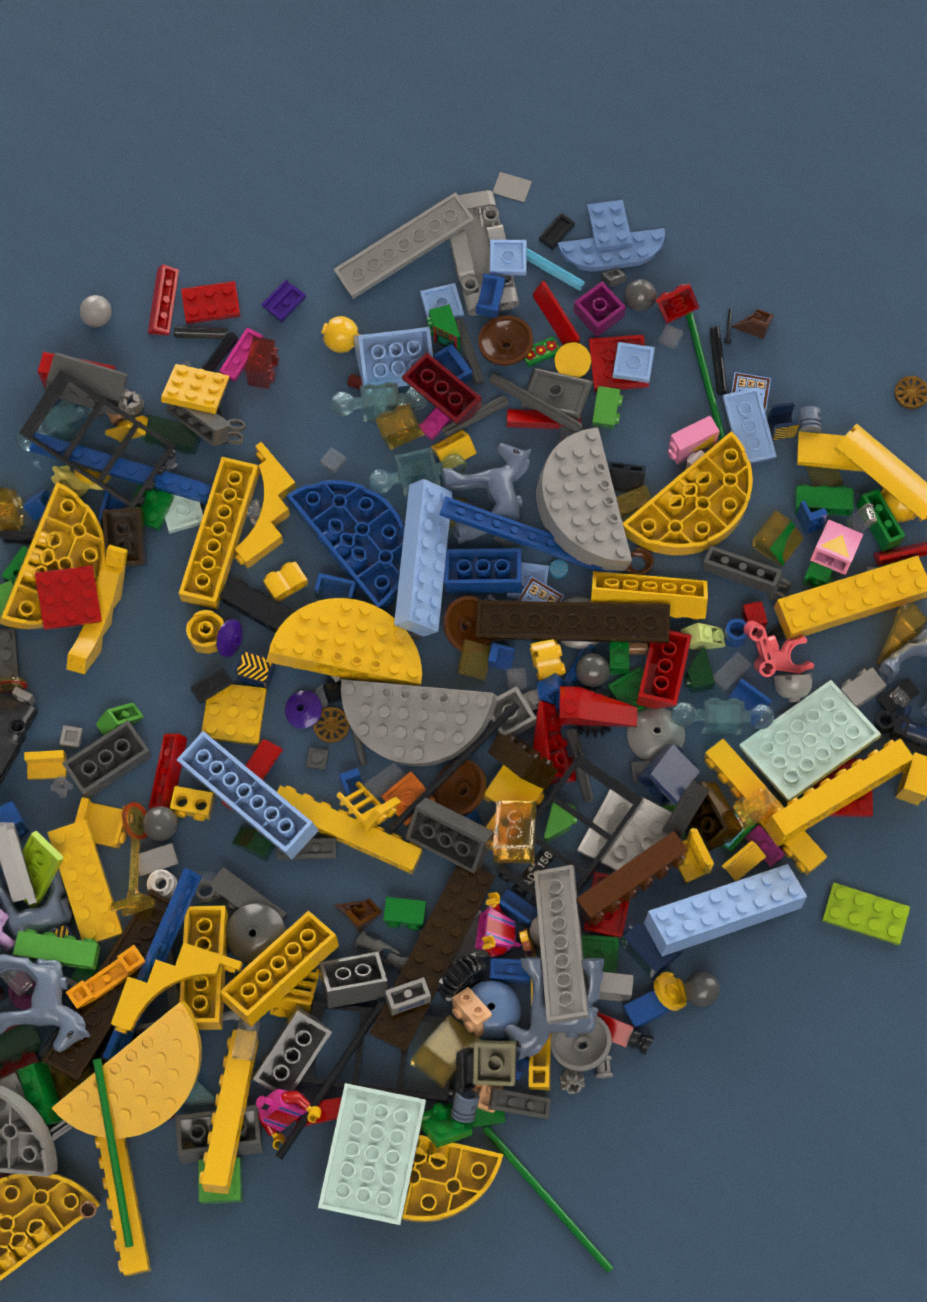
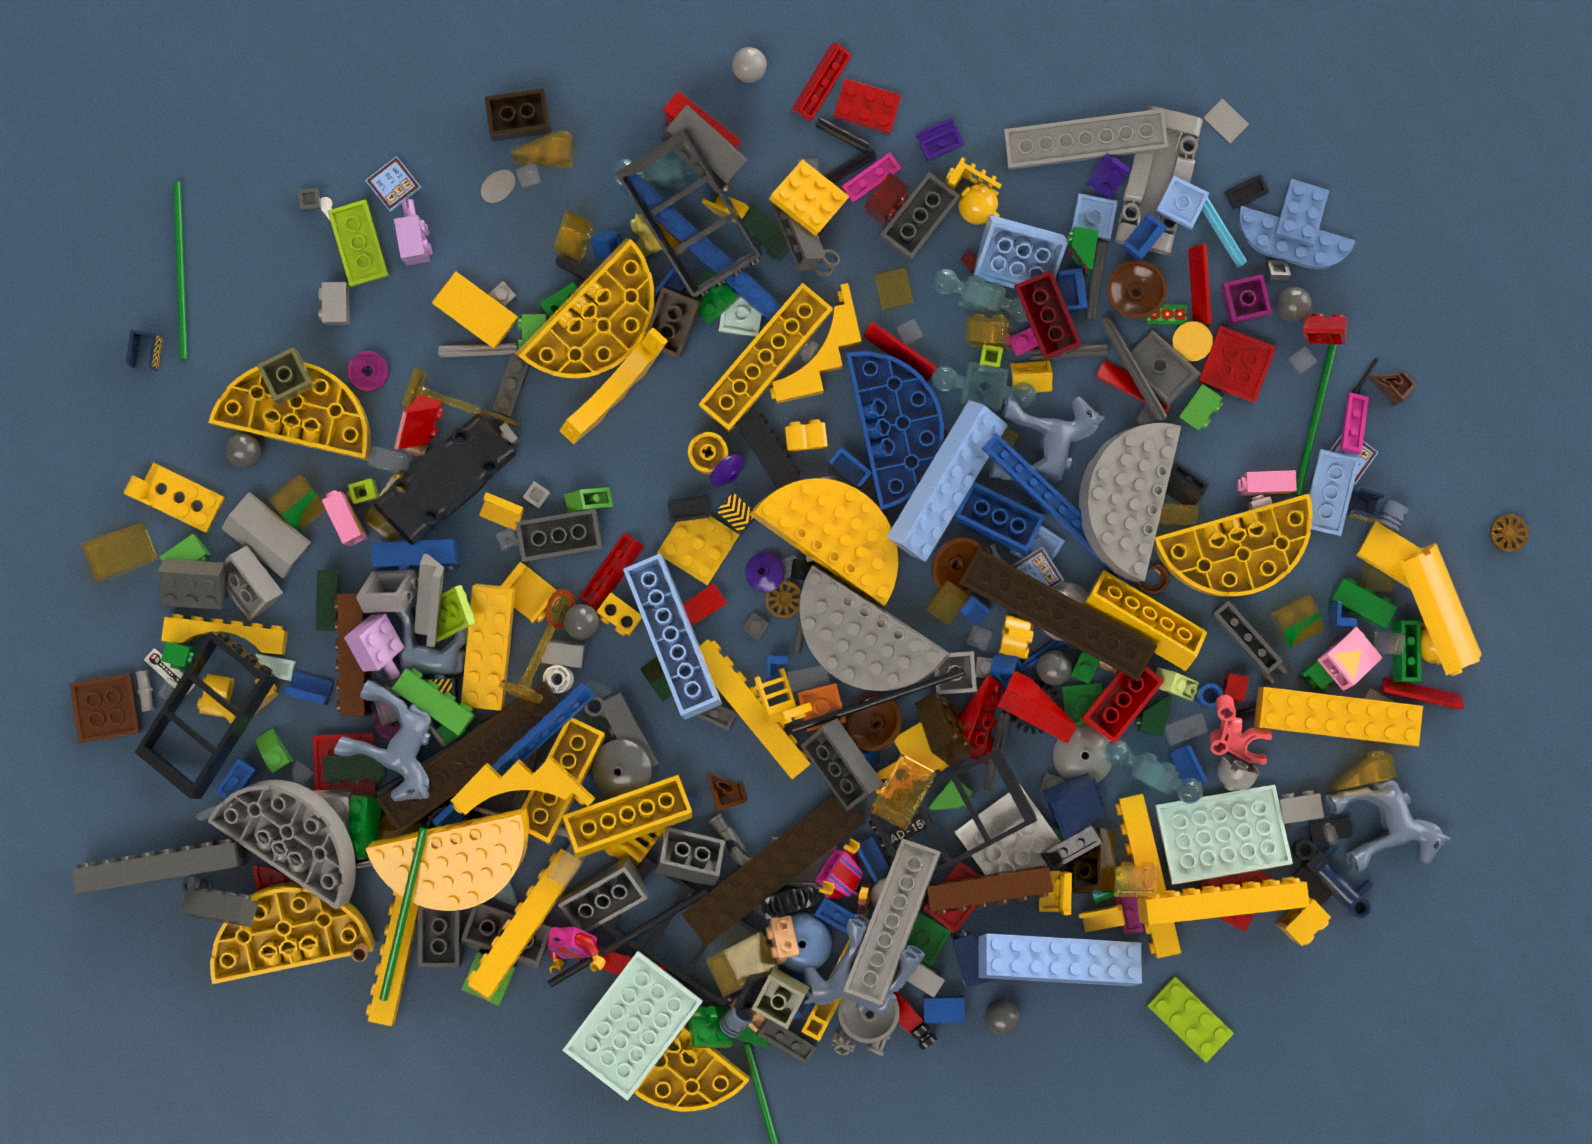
camera: 25 degrees right, 15 degrees up
(68, 597) = (590, 362): red plate -> none
(107, 978) = (466, 751): light orange slope -> none
(135, 406) = (743, 186): light grey gear -> none
(156, 1163) = (439, 938): none -> dark grey brick
(296, 365) = (919, 217): none -> dark grey brick
(303, 432) = (894, 289): none -> clear yellow piece
(314, 474) = (899, 350): none -> red slope
(316, 314) = (965, 171): none -> yellow plate
(404, 913) = (766, 814): green brick -> none
(407, 996) = (730, 902): light grey brick -> none
(410, 443) = (991, 355): none -> lime brick
(437, 265) = (1108, 176): none -> dark purple plate
(558, 569) = (1072, 548): dark azure tile -> none
(633, 362) = (1251, 372): light blue tile -> none
(670, 991) = (972, 1005): yellow tile -> none
(718, 360) = (1336, 407): black axle -> none
(739, 363) = (1354, 423): none -> dark pink plate

